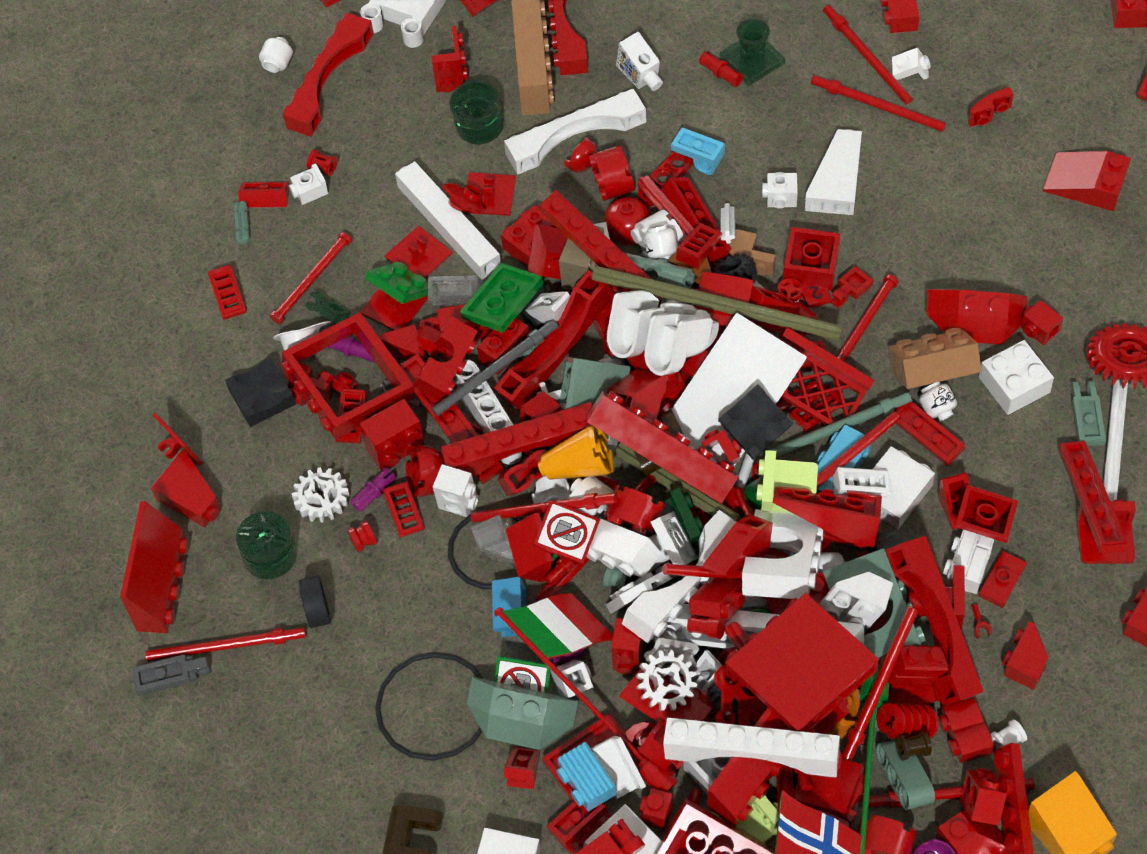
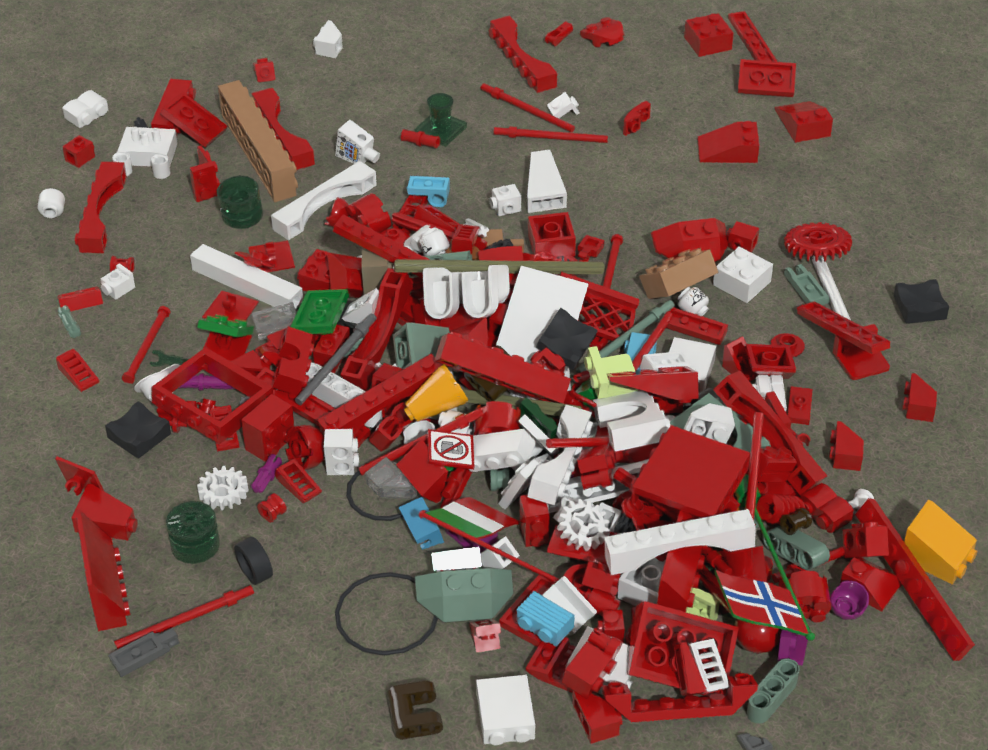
camera: 25 degrees left, 15 degrees down
(745, 539) = (595, 418): red slope -> none
(1027, 501) = (797, 343): none -> red piece

